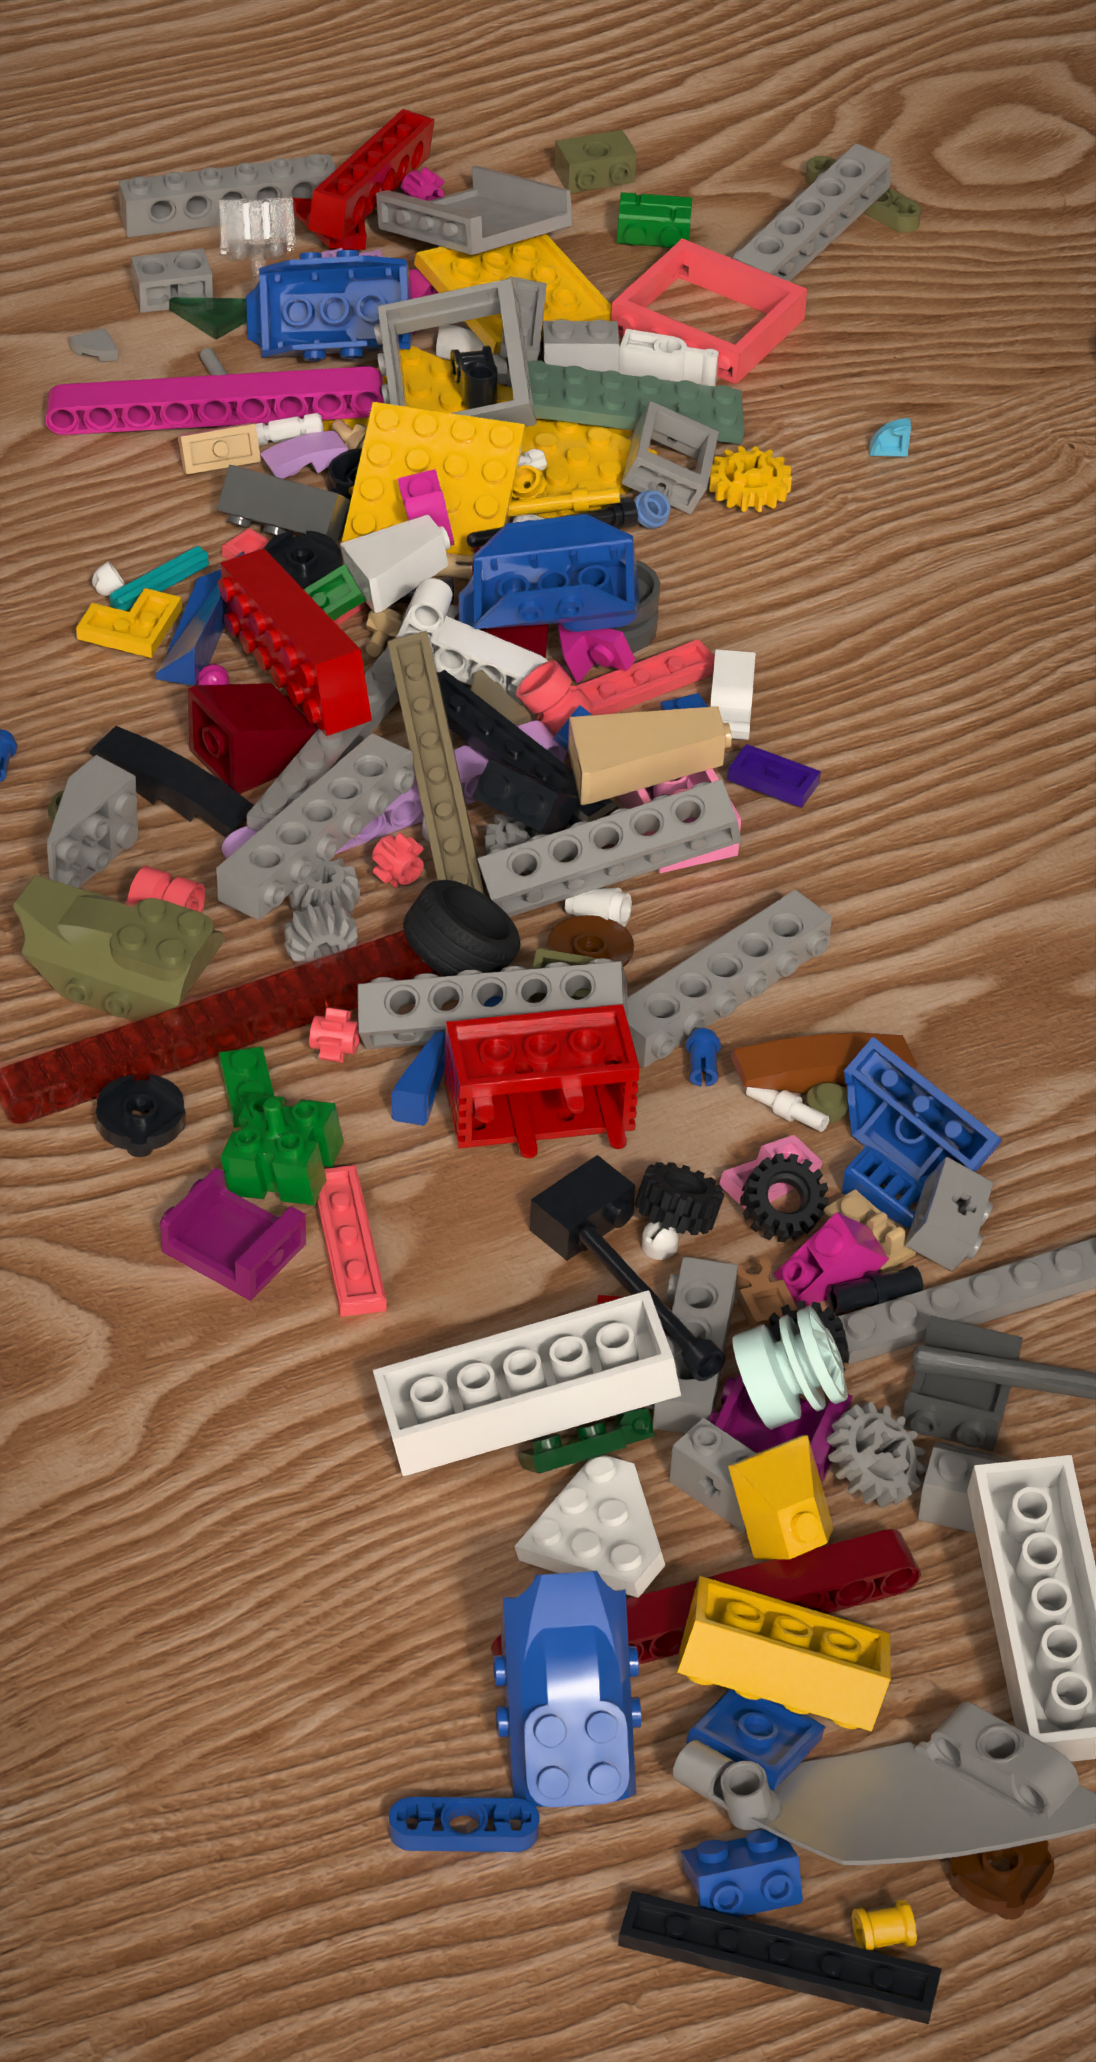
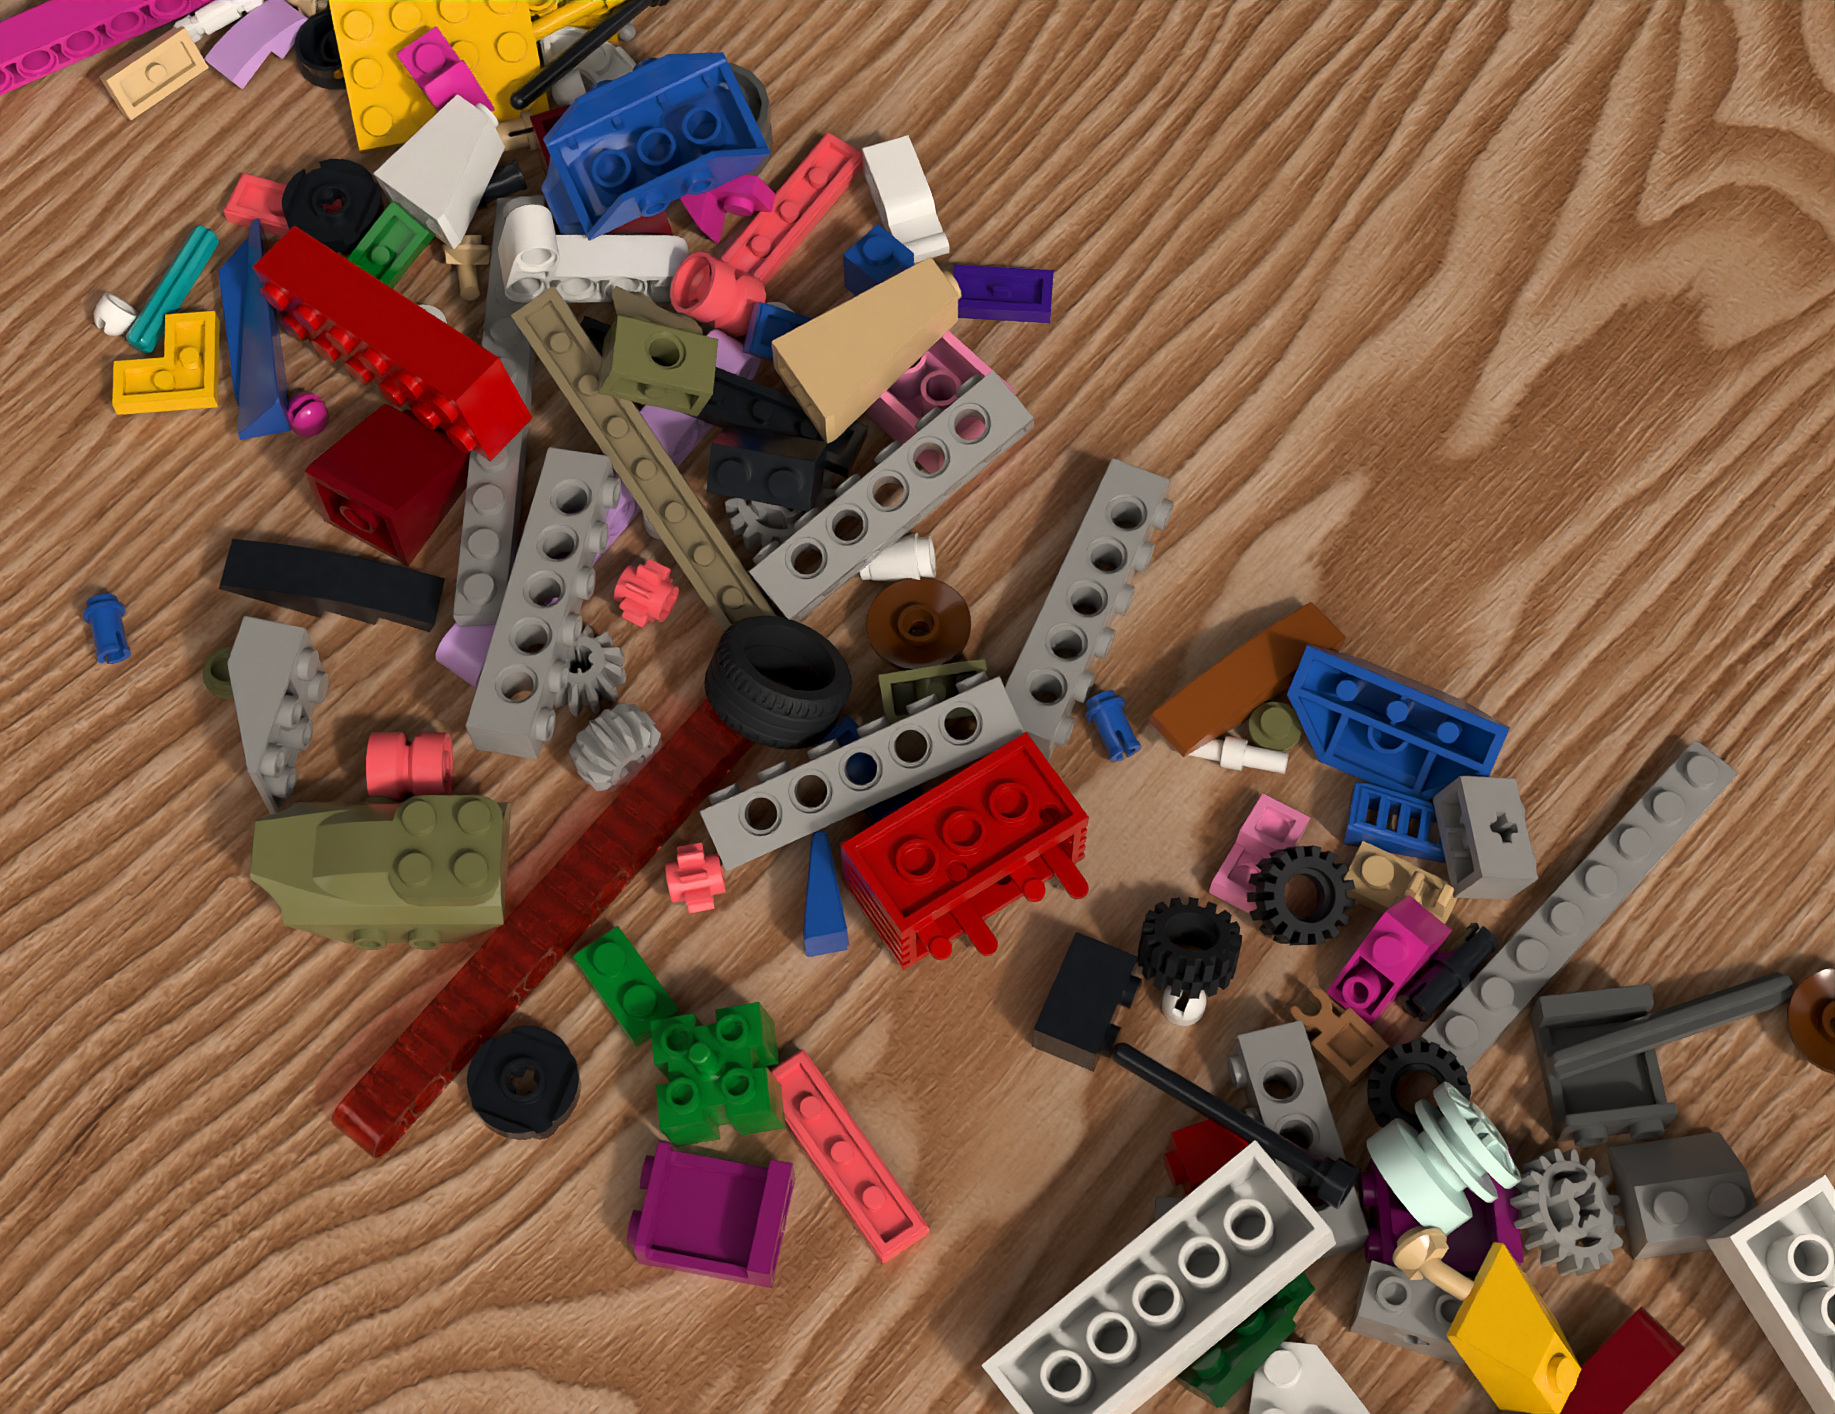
camera: 20 degrees left, 20 degrees up
(281, 504) = (270, 128): dark grey slope -> none
(477, 705) = (634, 376): none -> olive brick
(740, 1417) = (1420, 1256): none -> tan plate

